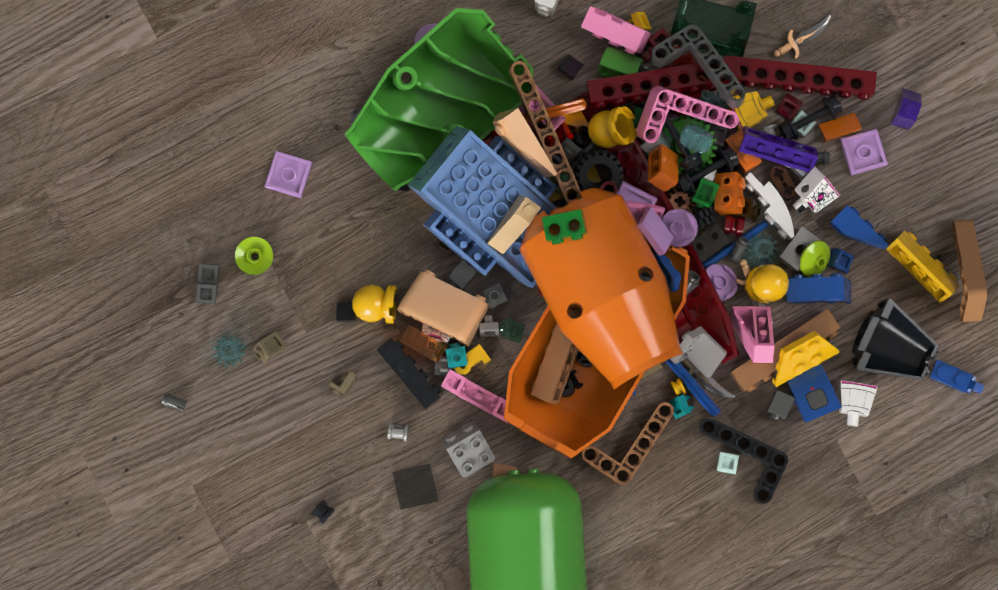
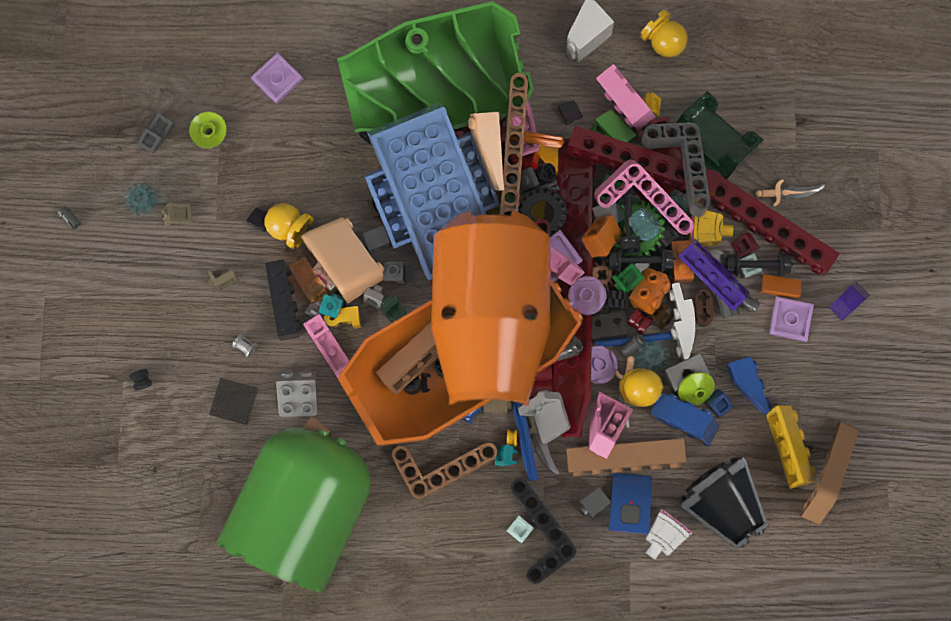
camera: 30 degrees right, 5 degrees down
(514, 223) = (439, 211): tan slope -> none
(564, 221) = (480, 225): green brick -> none
(612, 127) = (576, 177): yellow tile -> none
(655, 231) = (563, 285): lavender tile -> none
(672, 275) = (556, 332): blue hinge -> none
(802, 356) = (638, 468): yellow wing -> none
(814, 192) = (727, 329): white torso -> none
(955, 378) = (768, 563): blue hinge -> none

